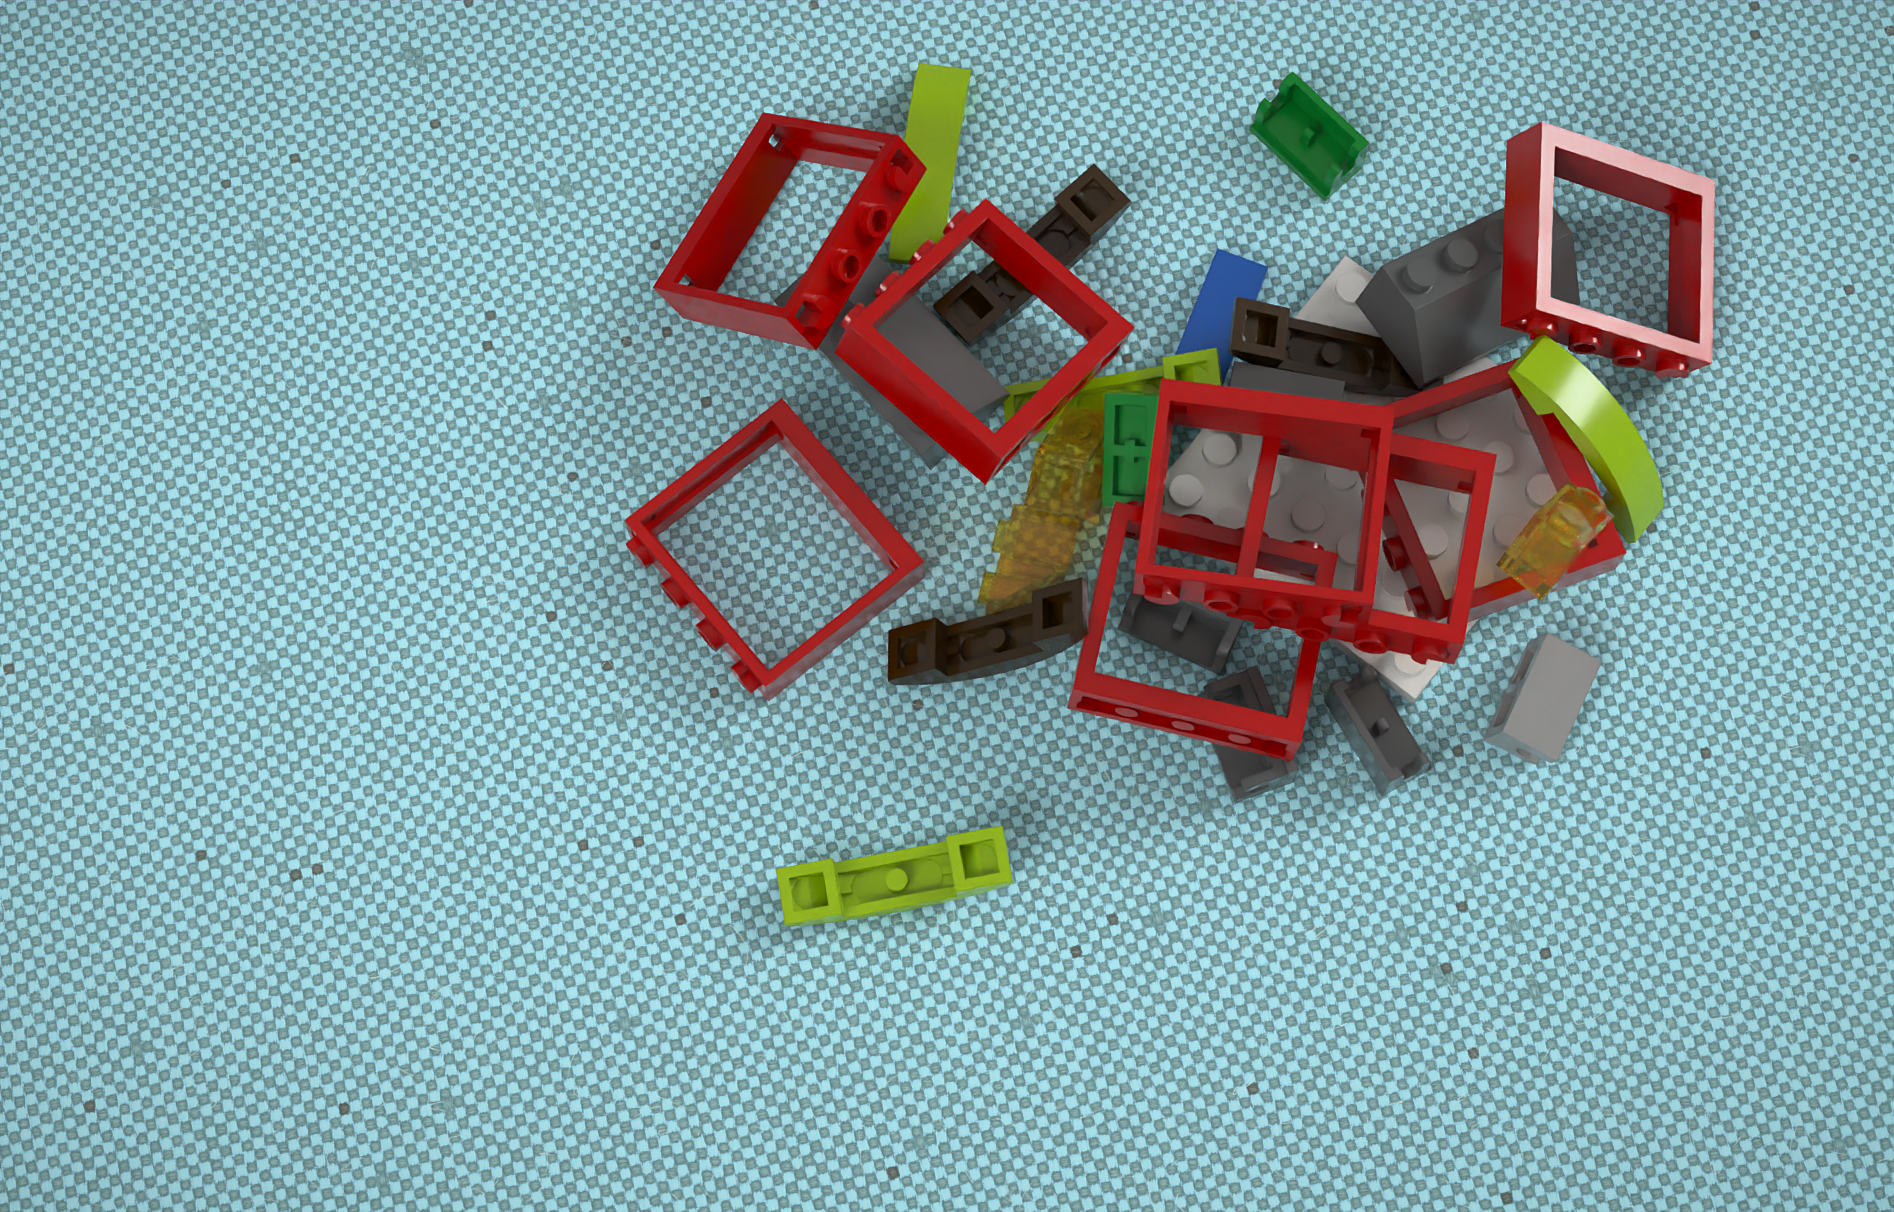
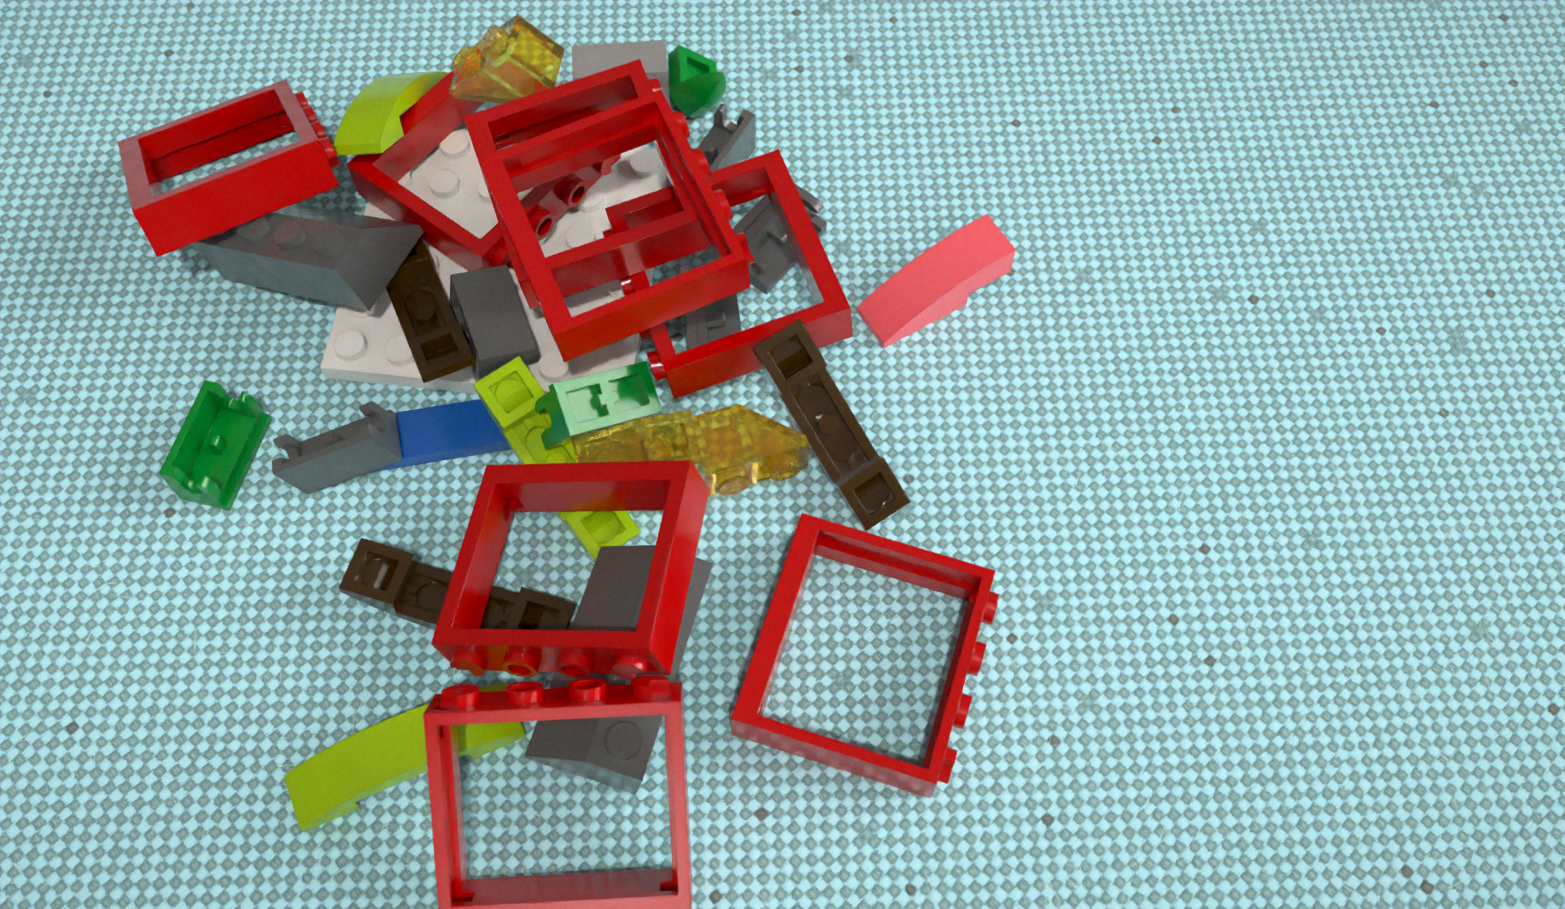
camera: 125 degrees left, 10 degrees down
(895, 880) = (1056, 406): lime slope -> none
(1095, 852) = (937, 281): none -> coral slope
(1240, 229) = (340, 452): none -> dark grey hinge
(1489, 767) = (694, 82): none -> green plate

